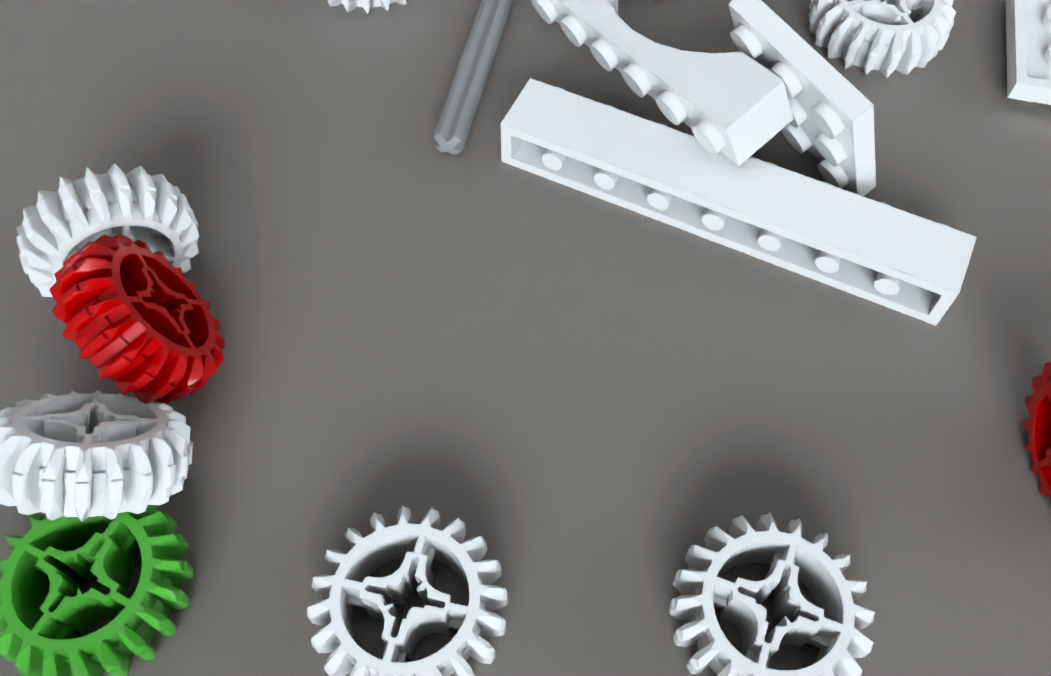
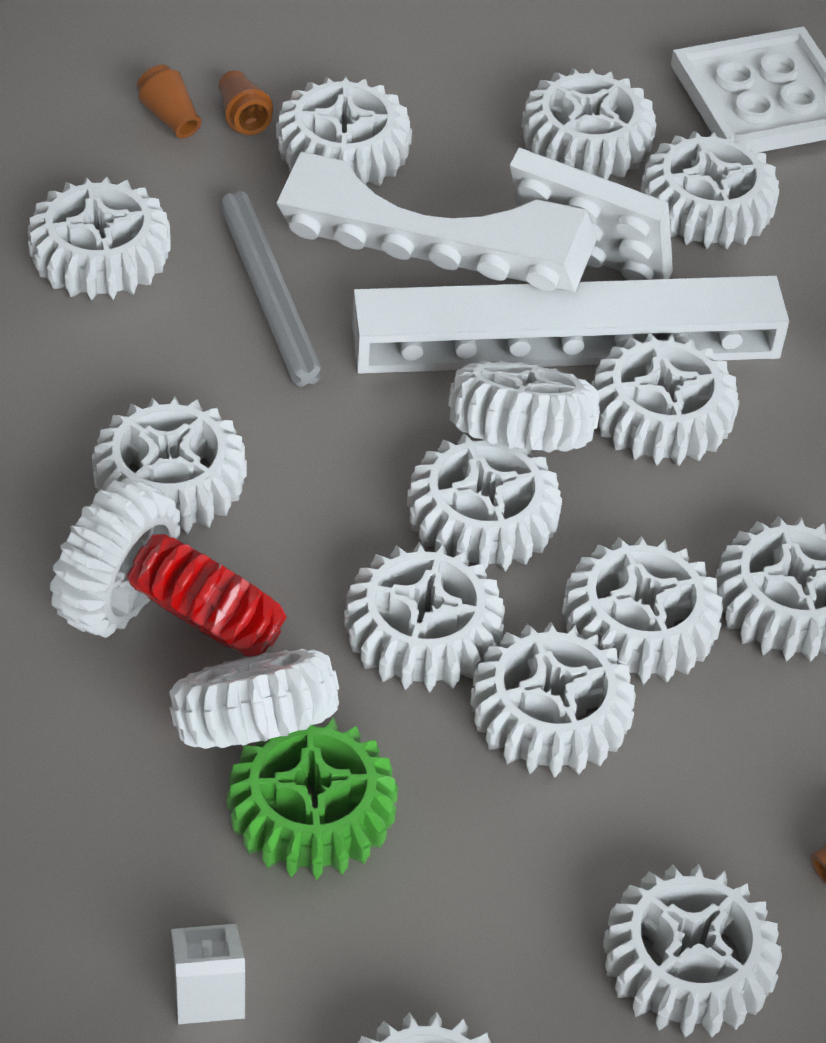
camera: 35 degrees left, 10 degrees down
(219, 179) = (168, 448): none -> white gear
(360, 403) = (396, 595): none -> white gear
(481, 320) = (484, 502): none -> white gear
(603, 263) = (524, 406): none -> white gear
(604, 558) = (646, 597): none -> white gear
(809, 318) = (665, 399): none -> white gear
(966, 121) = (712, 188): none -> white gear

